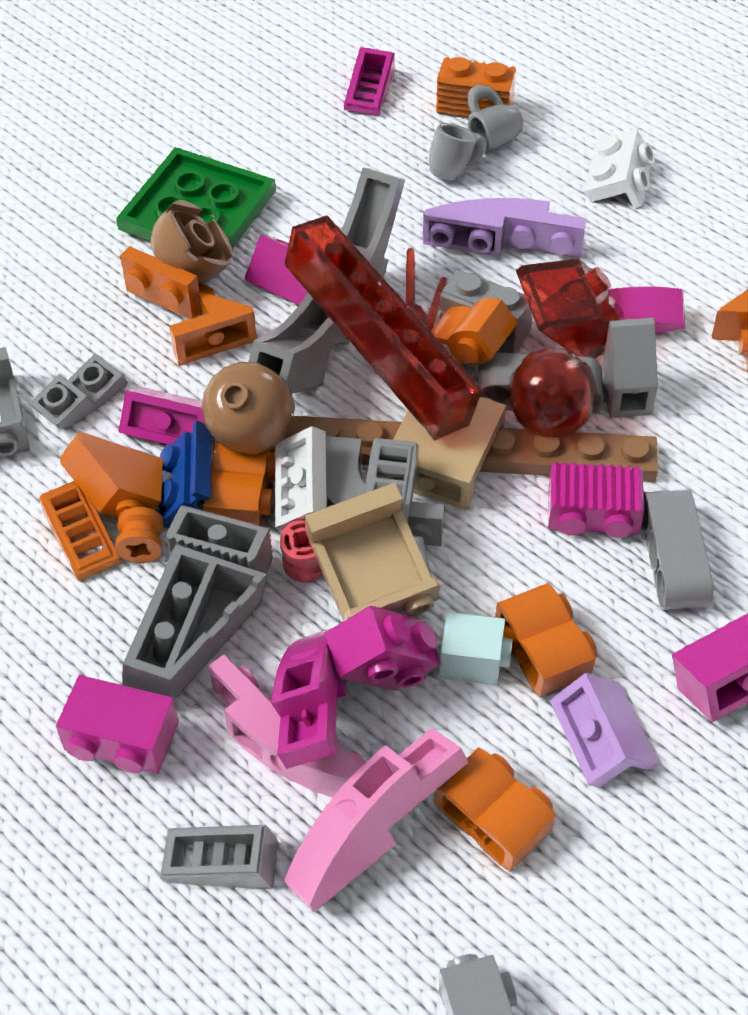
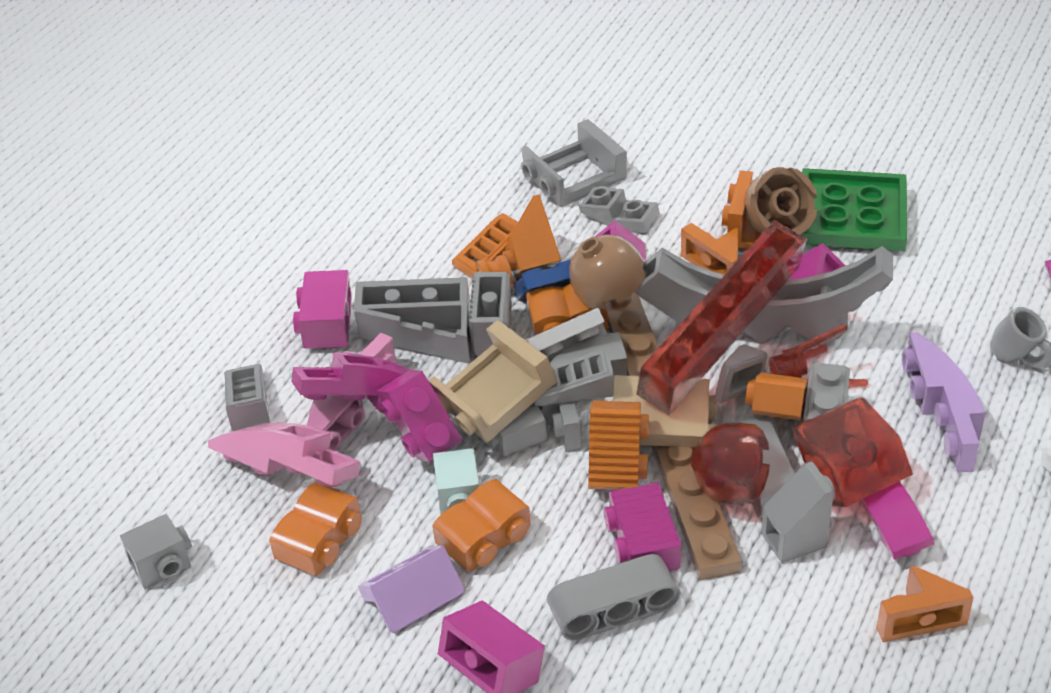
camera: 75 degrees right, 10 degrees down
(494, 480) = (615, 445): none -> orange brick

